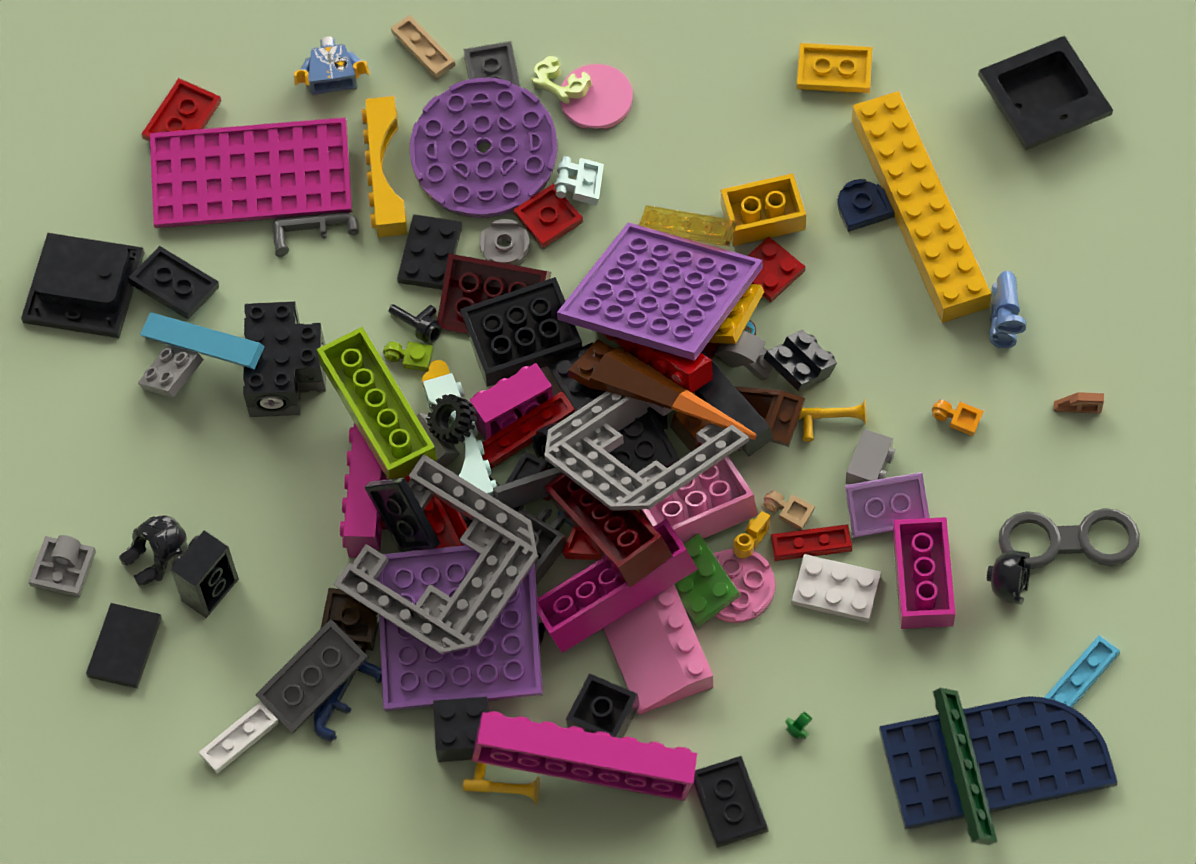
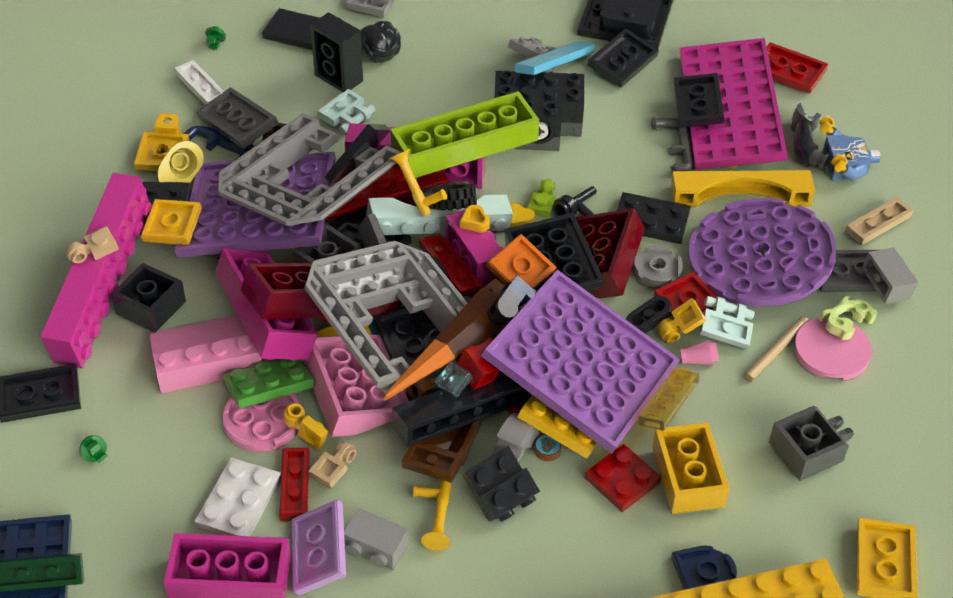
camera: 90 degrees right, 15 degrees down
(150, 738) = (214, 37): none -> green plate
(258, 200) = (698, 100): none -> black plate
(275, 573) = (342, 107): none -> light aqua plate
(313, 106) = (804, 145): none -> piece
(341, 753) = (163, 138): none -> yellow plate
(399, 721) = (181, 163): none -> light yellow piece
(436, 452) = (421, 202): none -> yellow piece
(492, 392) = (475, 219): none -> yellow tile
(505, 694) = (171, 222): none -> yellow tile
(510, 39) = (889, 275): none -> light grey brick
(549, 348) = (523, 260): none -> orange tile
(577, 248) = (647, 316): none -> black plate
(579, 738) = (98, 243): none -> tan plate
(585, 211) = (687, 318): none -> yellow plate
(600, 143) = (756, 369): none -> tan bar
(616, 344) = (505, 305): none -> leg
(618, 203) = (702, 353): none -> bright pink cone
(710, 391) = (453, 379): none -> clear light blue plate
(721, 115) = (810, 441): none -> dark grey hinge

